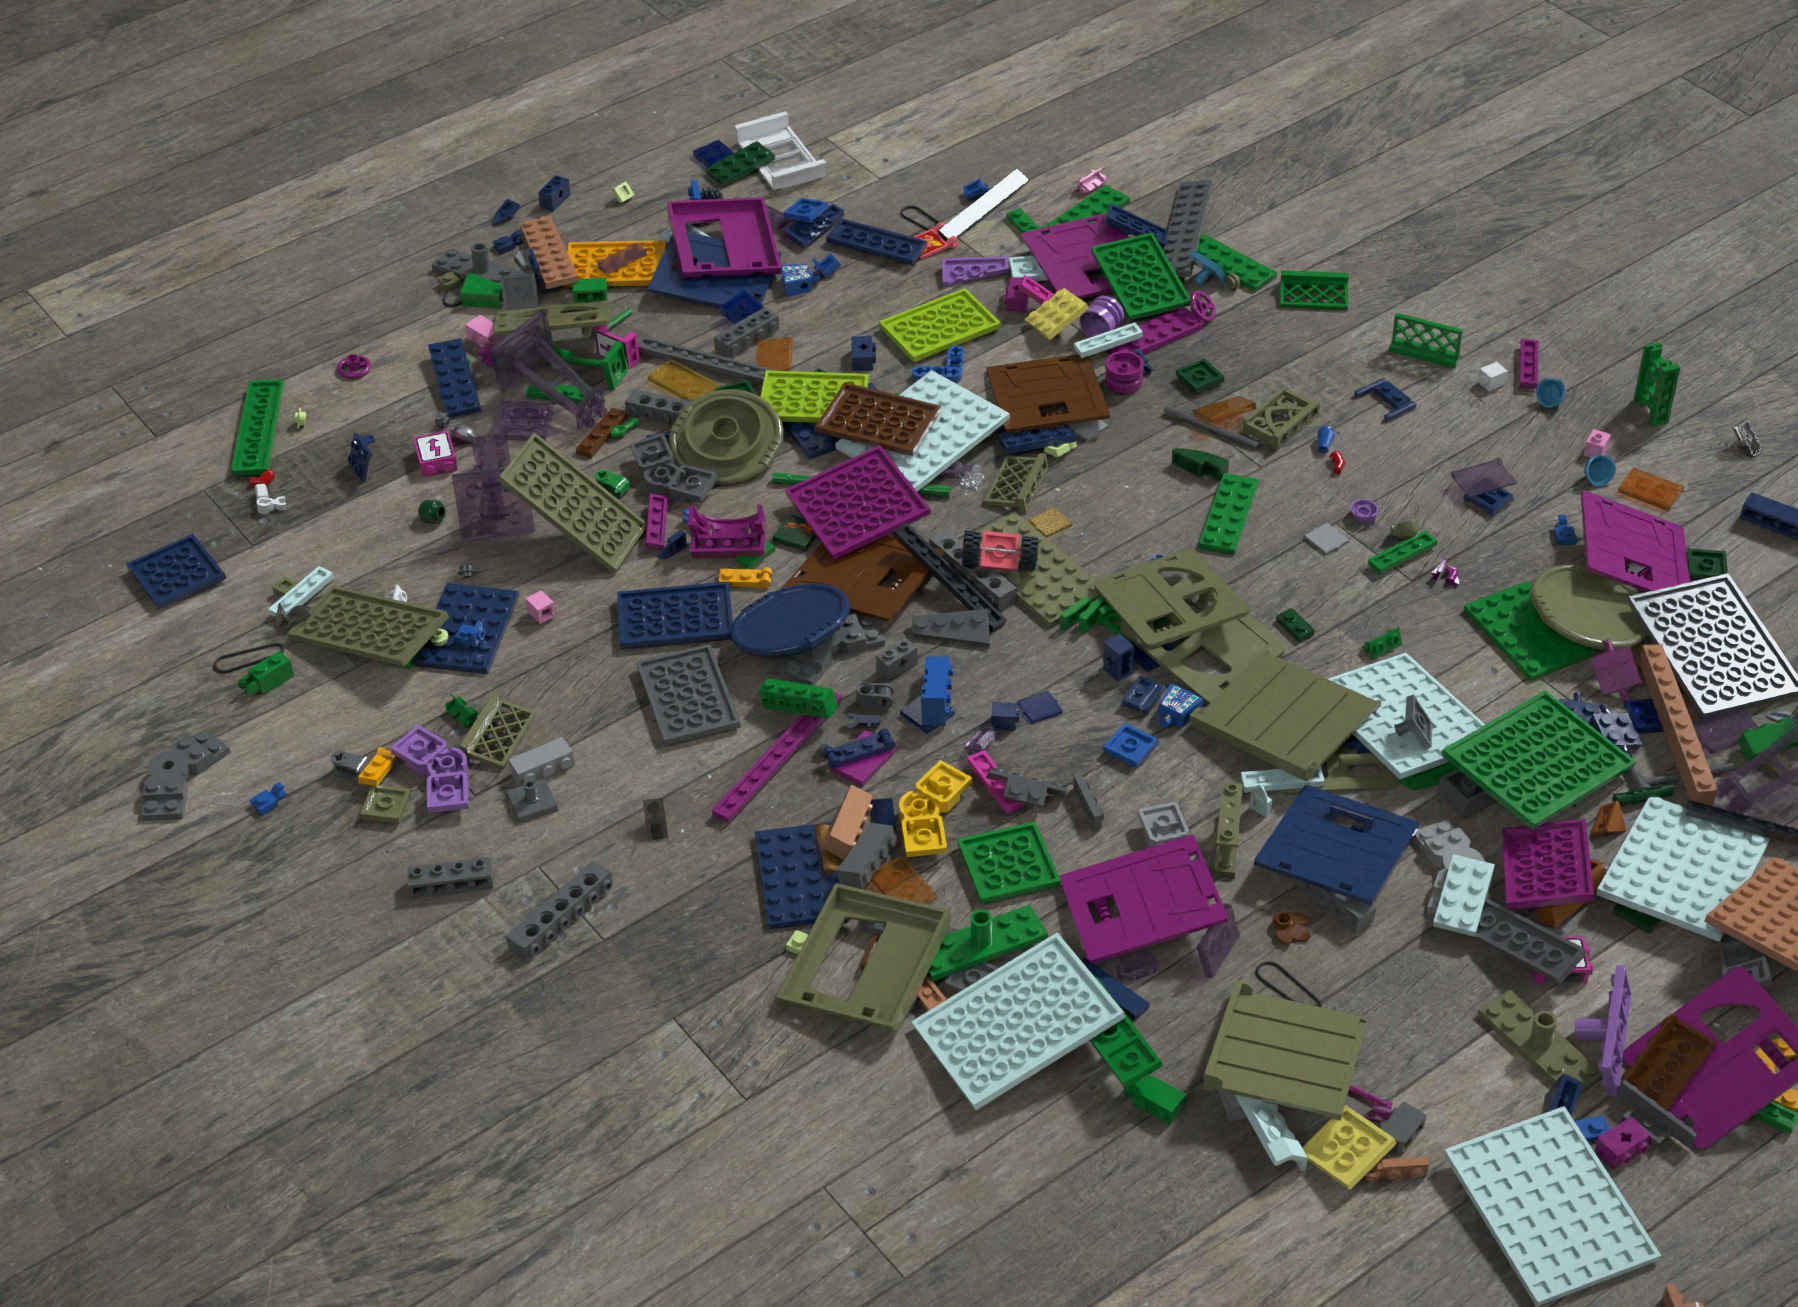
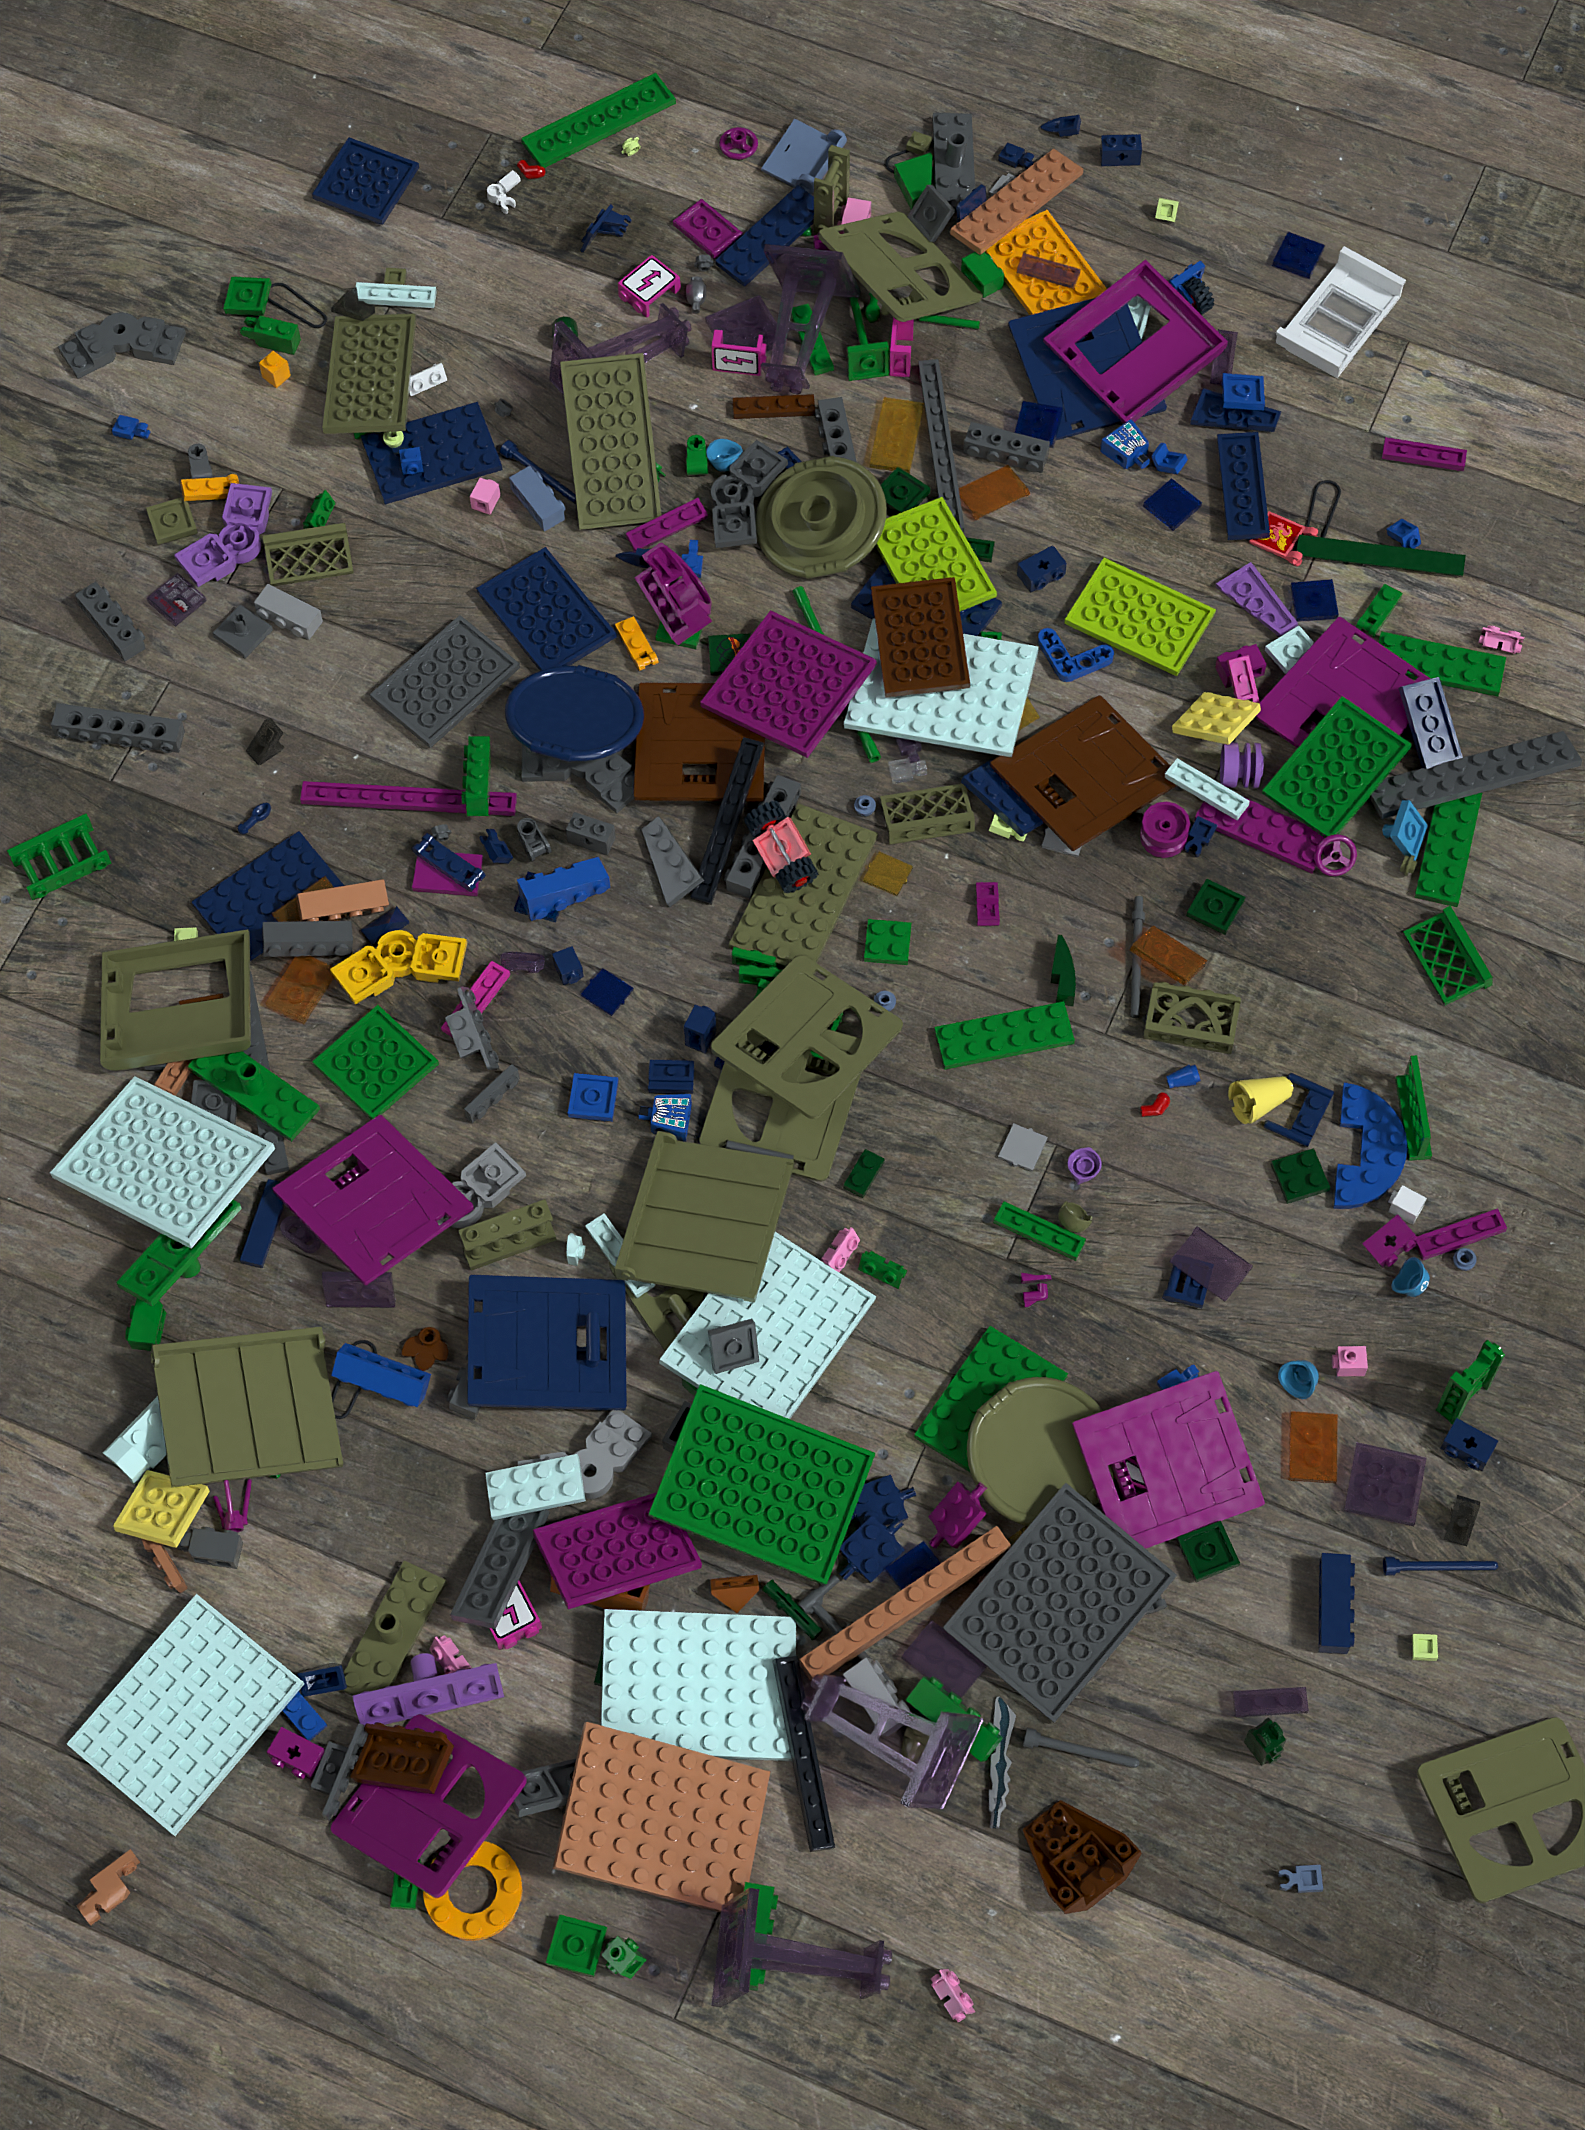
camera: 60 degrees right, 20 degrees up
(213, 678) = (247, 296): none -> green plate
(302, 686) = (274, 369): none -> light orange brick
(401, 338) = (805, 156): none -> sand blue door
(412, 409) = (707, 228): none -> magenta tile
(460, 319) = (832, 190): none -> olive fence
(464, 830) = (176, 599): none -> clear purple tile
(510, 581) = (510, 450): none -> dark blue piece
(549, 426) = (737, 358): none -> panel
(568, 581) = (537, 498): none -> sand blue brick
(621, 430) = (786, 420): green piece -> none
(625, 466) = (723, 453): none -> dark azure helmet
(638, 987) = (50, 840): none -> green fence
(717, 851) = (259, 813): none -> dark blue piece
(740, 163) = (1294, 288): dark green plate -> none
(861, 279) = (1172, 504): none -> clear blue tile
(921, 160) = (1424, 454): none -> magenta plate
(985, 511) = (865, 810): none -> sand blue plate
(992, 246) = (1314, 600): none -> clear blue plate
(1109, 542) = (887, 942): none -> green plate
(1111, 480) = (987, 904): none -> magenta slope
(1233, 676) = (748, 1148): none -> dark grey bar
(1304, 957) = (381, 1375): none -> blue brick
(1350, 653) = (846, 1243): none -> bright pink hinge
(1367, 411) = (1258, 1096): none -> light yellow cone
(1437, 417) = (1300, 1176): none -> dark green plate
(1458, 384) = (1381, 1151): none -> blue plate
(1518, 391) = (1395, 1230): none -> magenta brick
(1548, 368) = (1464, 1253): none -> sand blue plate
(1587, 1011) = (444, 1652): none -> bright pink hinge
(1690, 416) = (1463, 1434): none -> dark blue brick
(1699, 465) = (1385, 1484): none -> clear purple plate
(1759, 777) = (868, 1678): none -> light grey brick
(1763, 484) = (1392, 1566): none -> dark blue piece

